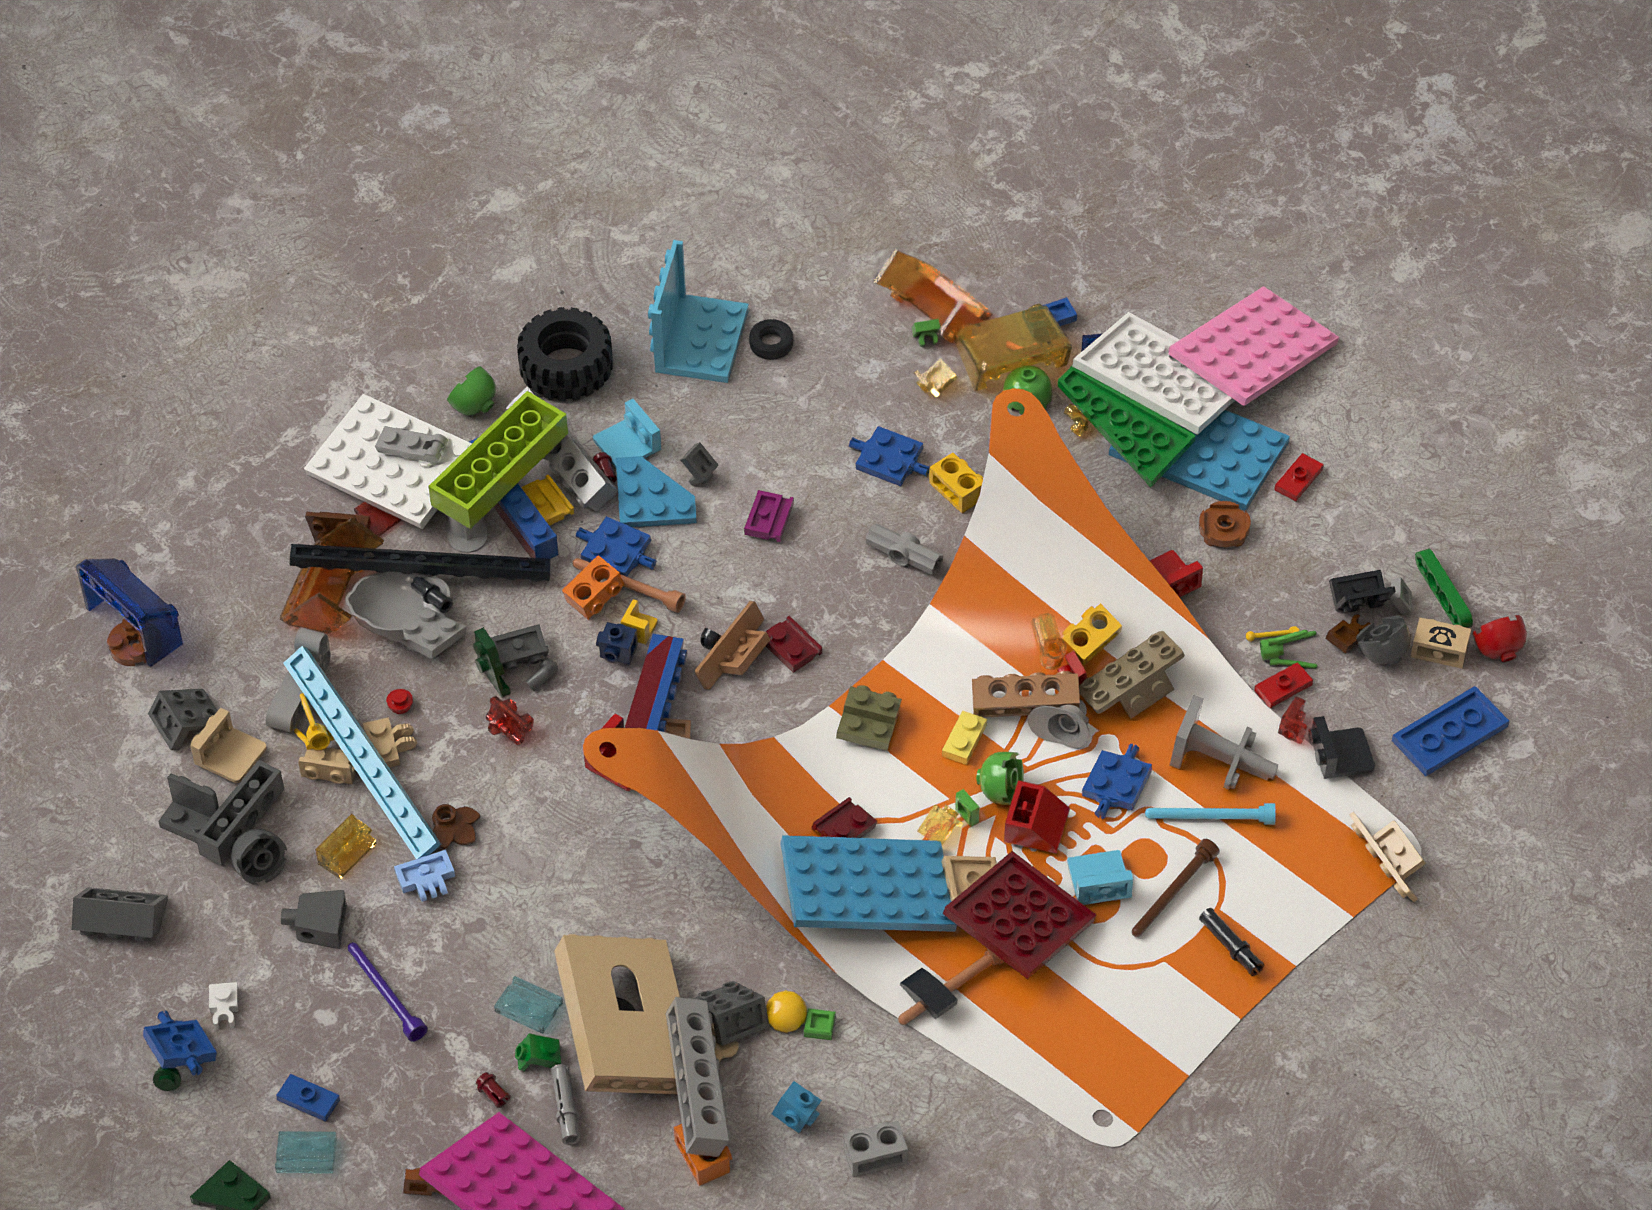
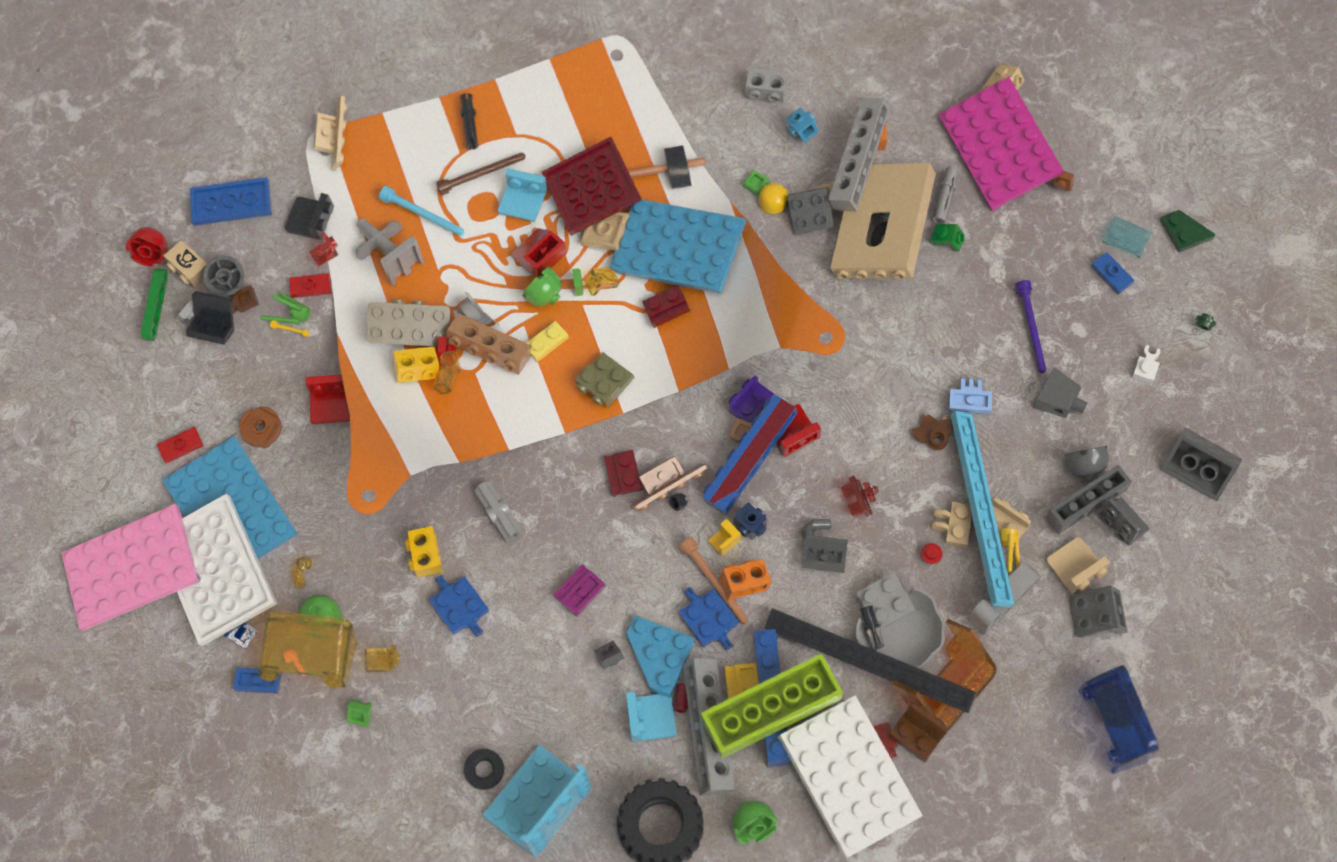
camera: 150 degrees left, 15 degrees up
(179, 1043) = (1191, 336): blue plate -> none
(345, 846) = (1020, 446): clear yellow hinge -> none
(411, 444) = (833, 766): light grey plate -> none
(487, 1084) = (988, 223): dark red pin -> none
(489, 661) = (854, 548): dark green wing -> none
(528, 1004) = (939, 276): clear light blue plate -> none
(931, 293) = (327, 734): clear orange windscreen -> none
(1117, 780) = (466, 262): blue plate -> none
(1136, 432) = (270, 526): green wing -> none

